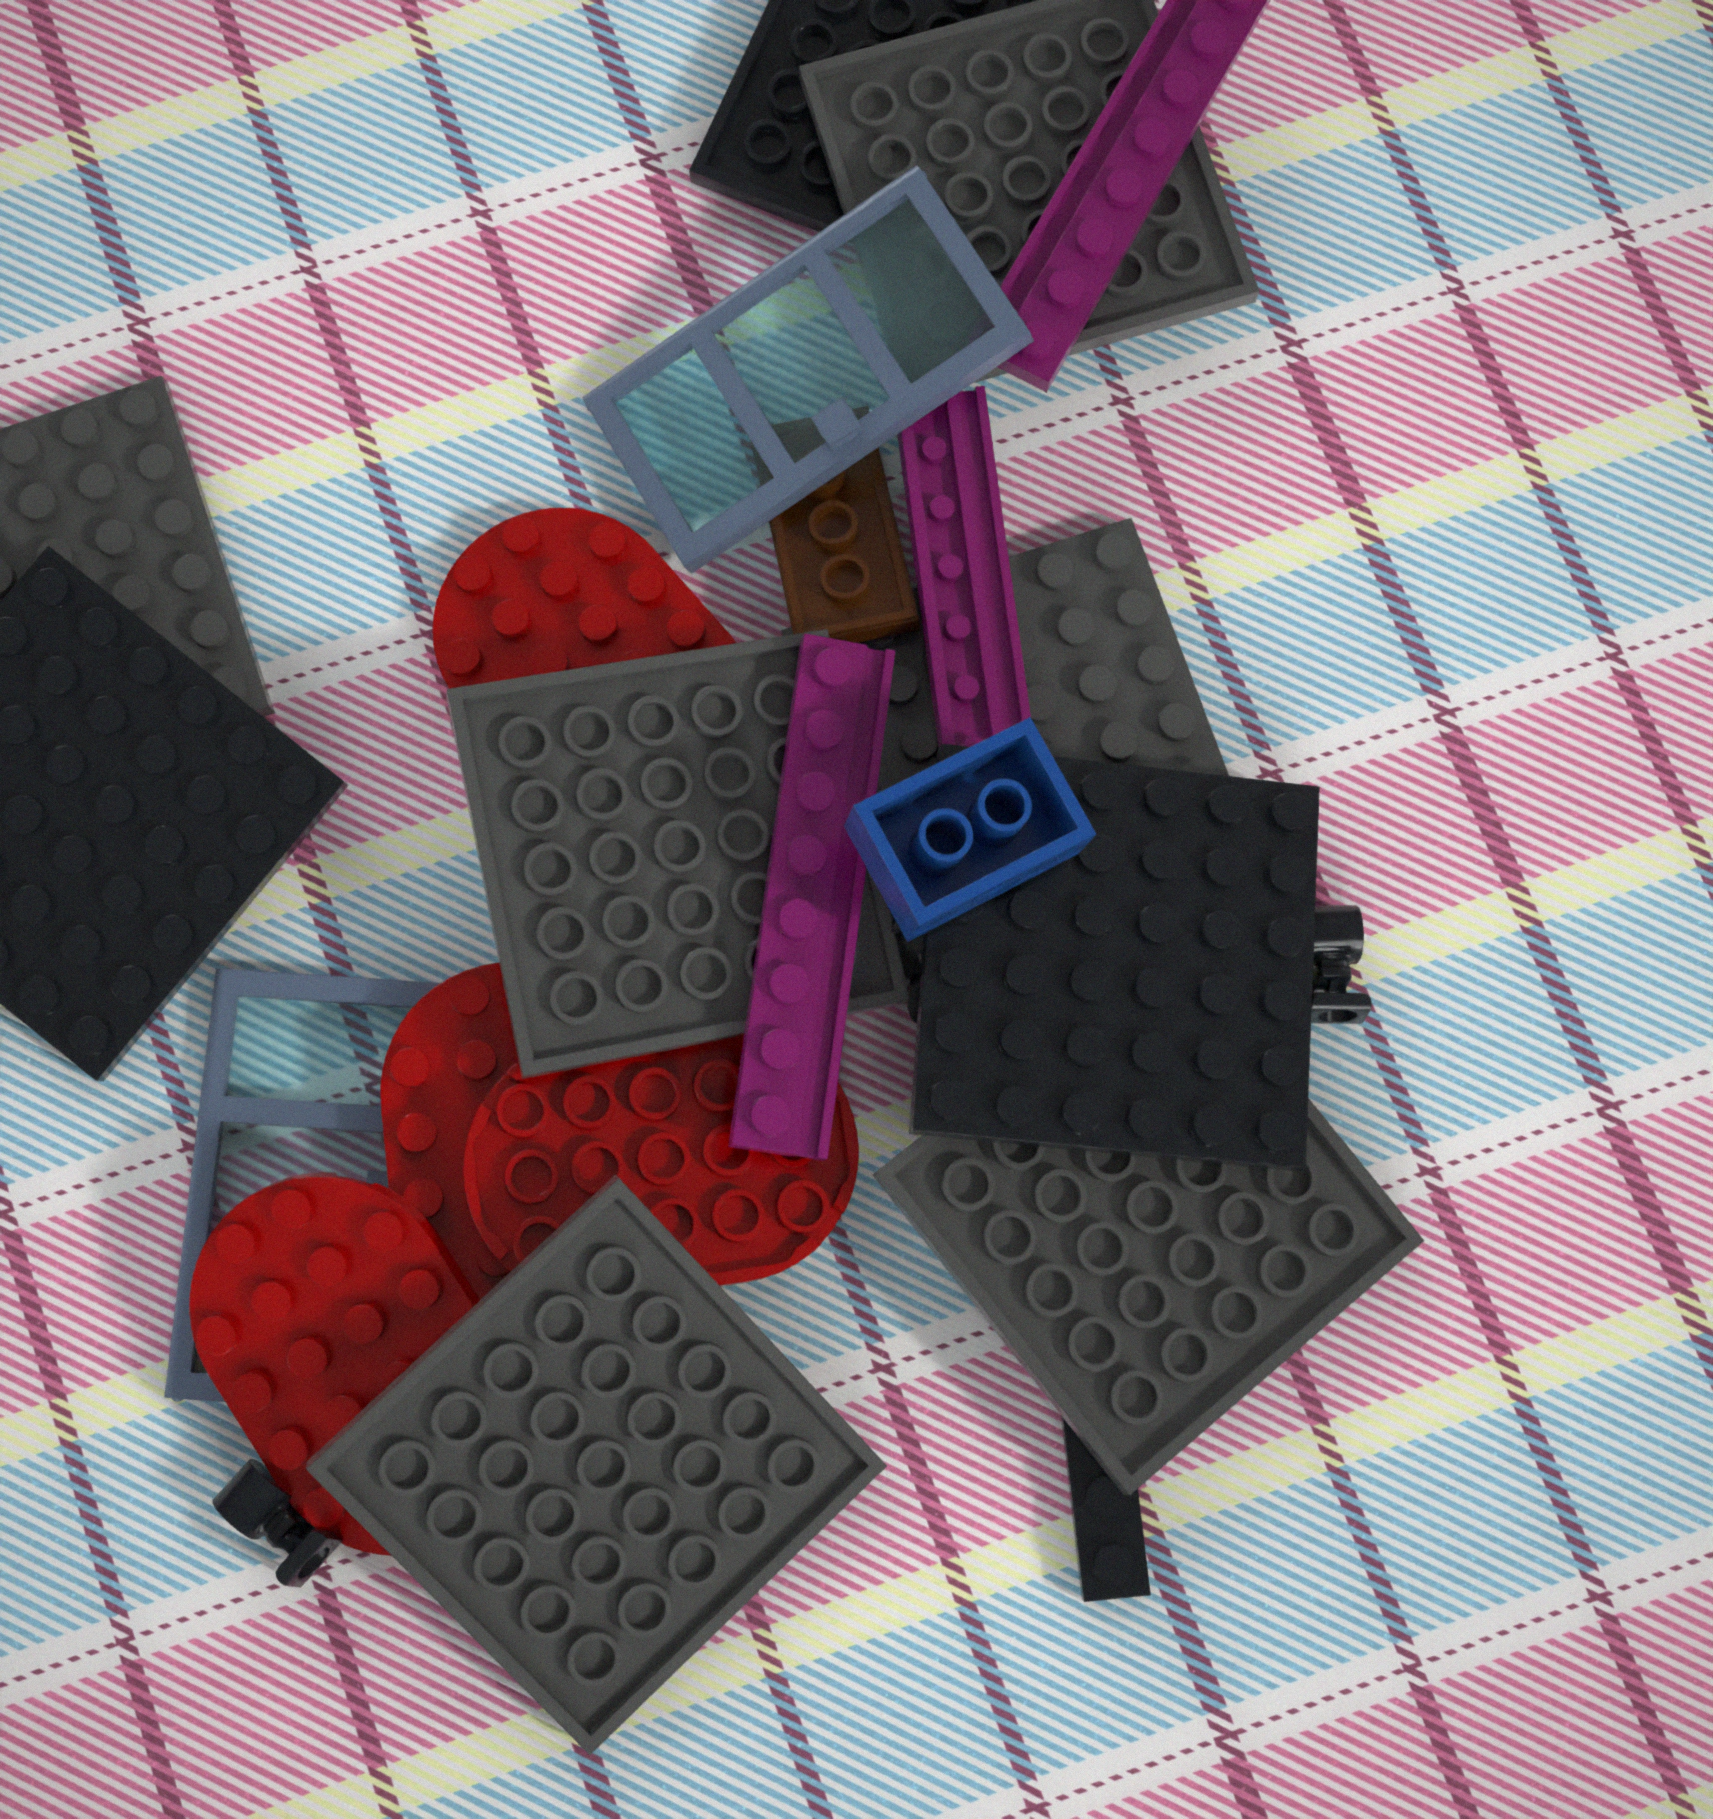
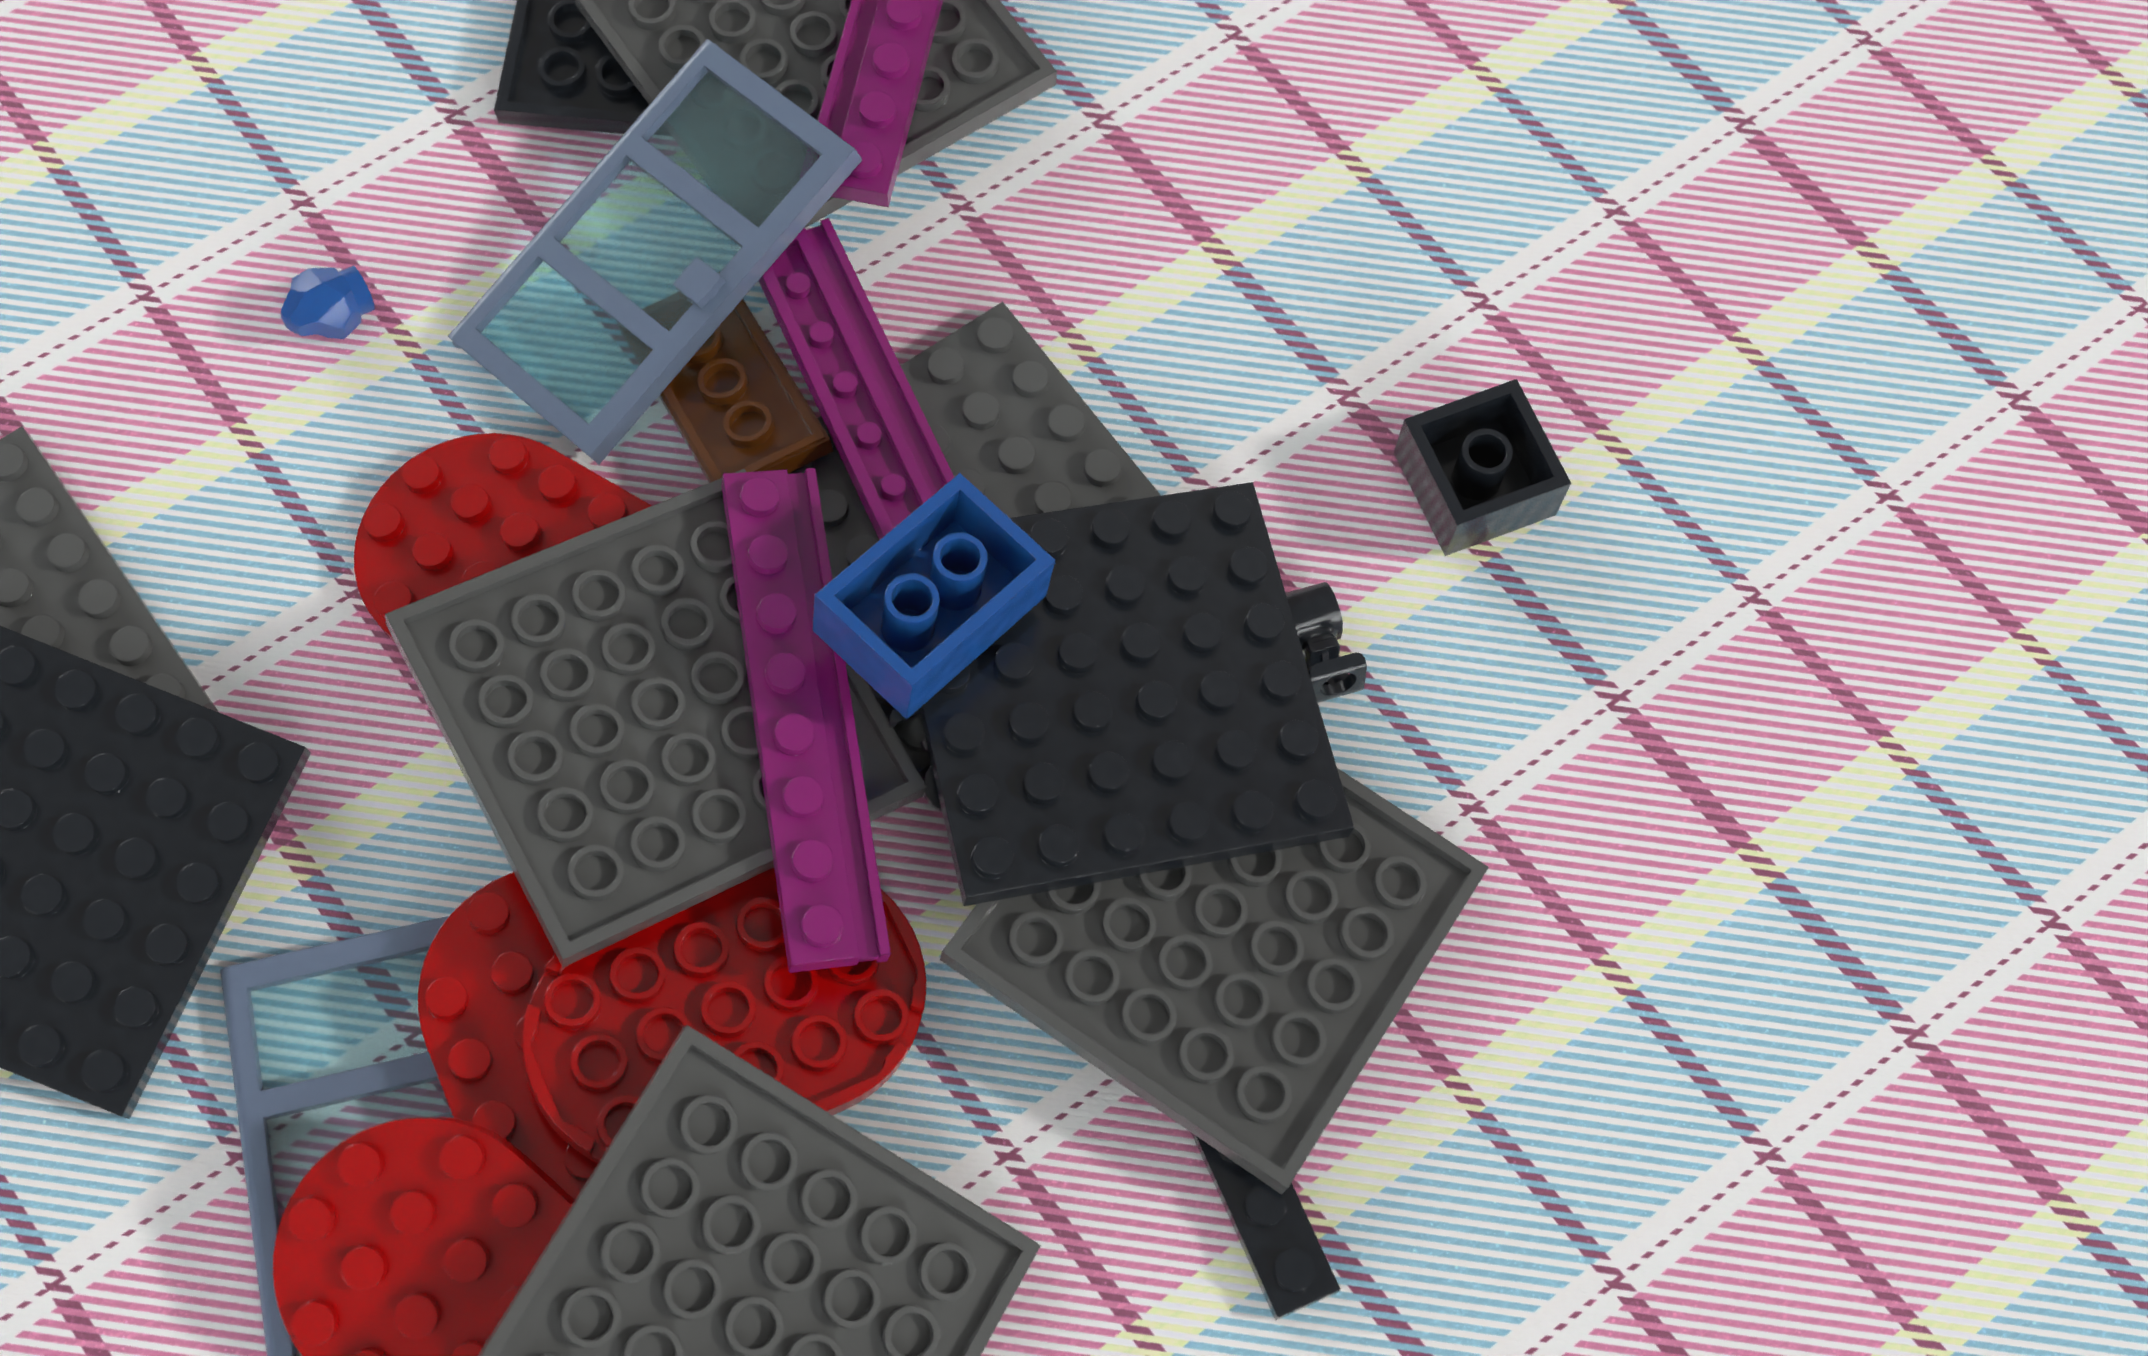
camera: 20 degrees left, 10 degrees down
(475, 331) = (326, 302): none -> blue rock
(1553, 836) = (1481, 467): none -> black brick

